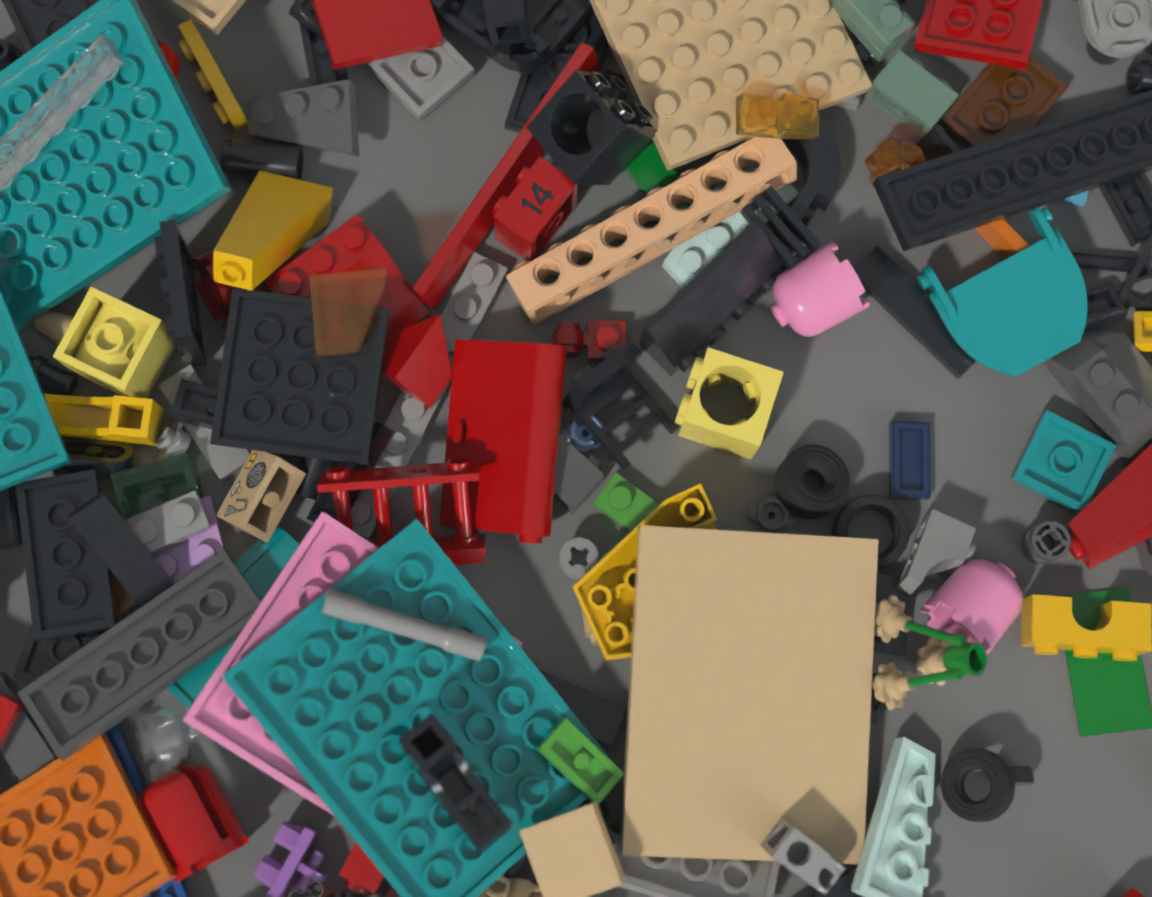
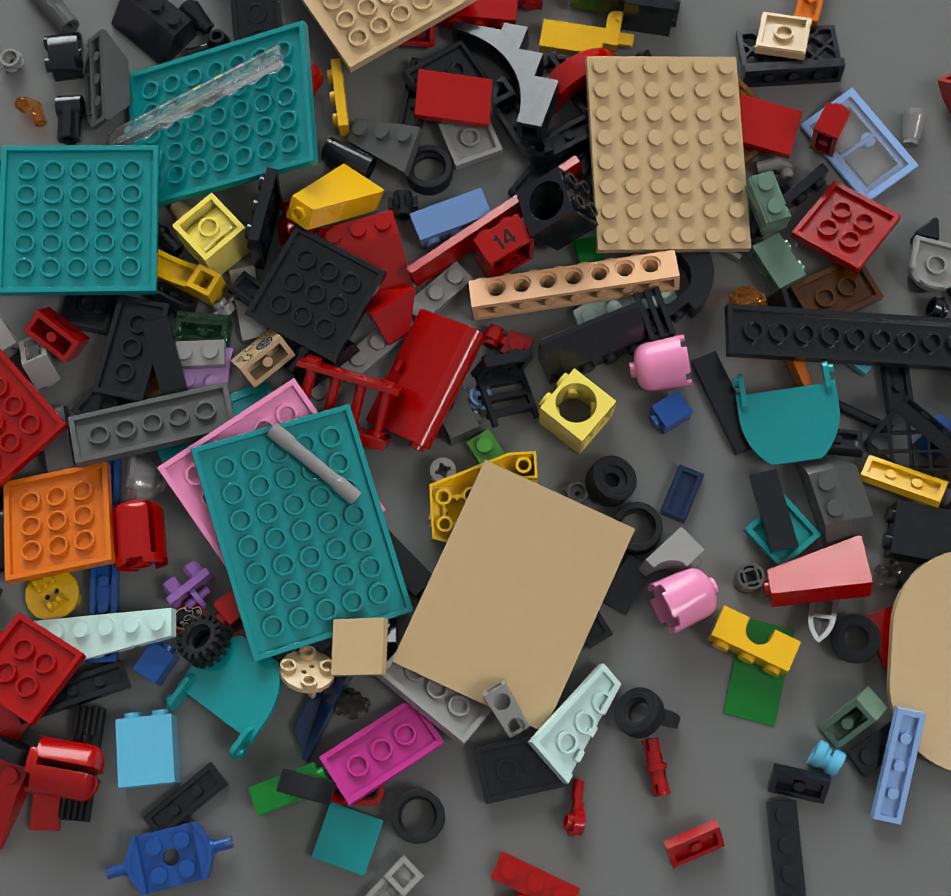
camera: 30 degrees right, 5 degrees down
(344, 309) = (357, 261): clear orange wing -> none
(367, 199) = (402, 204): none -> black gear
(405, 153) = (436, 186): none -> black tyre
(440, 195) = (447, 218): none -> medium blue brick
(453, 784) = (303, 569): black arch -> none
(579, 760) = (389, 593): bright green plate -> none
(777, 118) = (678, 244): clear yellow slope -> none
(851, 355) = (670, 412): none -> blue brick
(936, 659) = (645, 624): plant -> none
(1026, 848) = (656, 767): none -> red pin
(1044, 439) = (773, 511): none -> black tile

